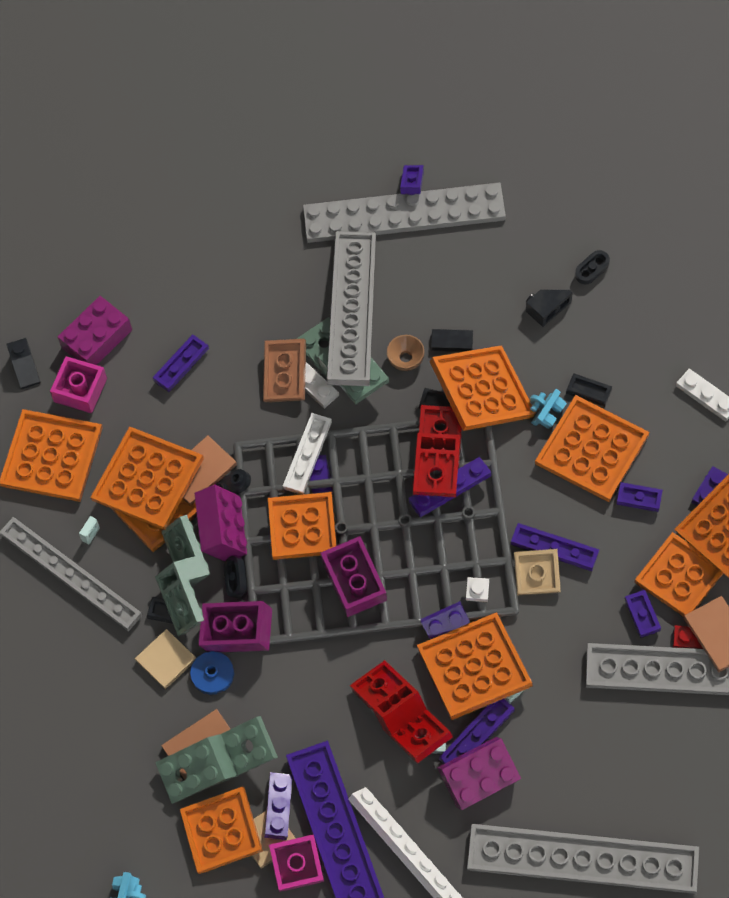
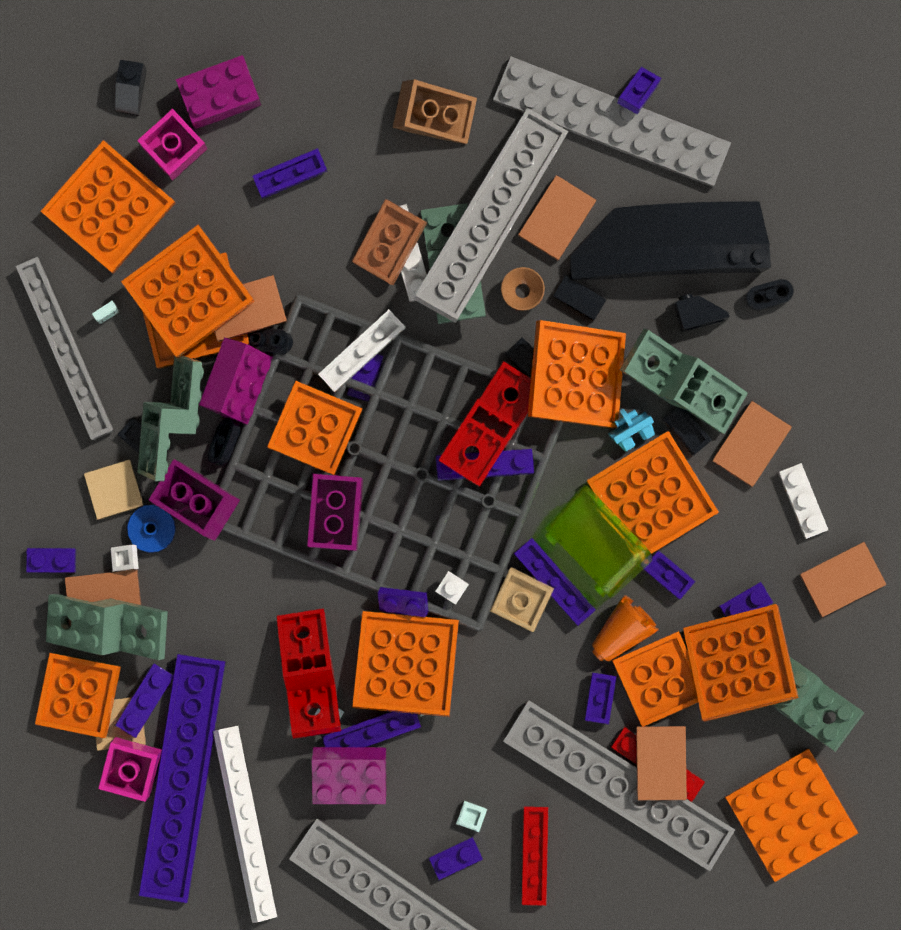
camera: 25 degrees right, 20 degrees up
(143, 739) = (51, 560): none -> dark purple plate
(202, 704) = (124, 558): none -> white plate
(266, 267) = (434, 111): none -> medium nougat slope
(402, 295) = (557, 218): none -> nougat tile
(499, 266) = (675, 241): none -> black slope
(565, 352) = (683, 381): none -> sand green bracket
(572, 493) = (598, 542): none -> clear neon green windscreen
(595, 758) = (471, 816): none -> light aqua tile
(602, 797) = (455, 858): none -> dark purple plate
(629, 552) = (623, 630): none -> orange cone
(643, 375) = (752, 444): none -> nougat tile
(664, 760) = (535, 855): none -> red plate

